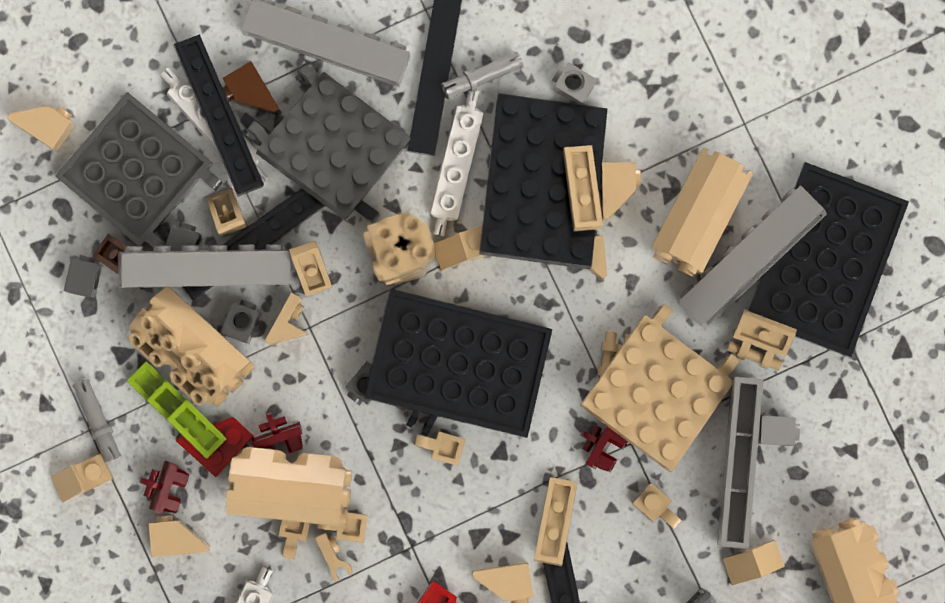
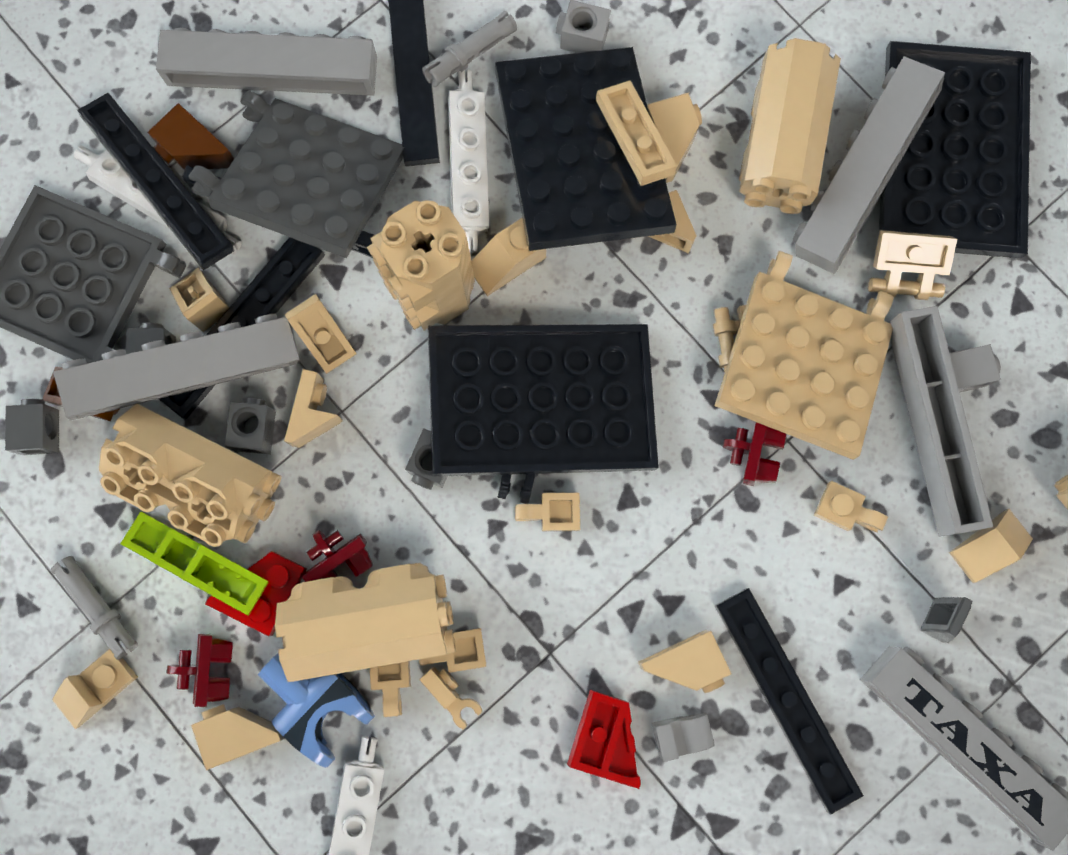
camera: 15 degrees left, 5 degrees down
(231, 532) = (308, 705): none -> medium blue connector
(555, 521) = (728, 566): tan plate -> none

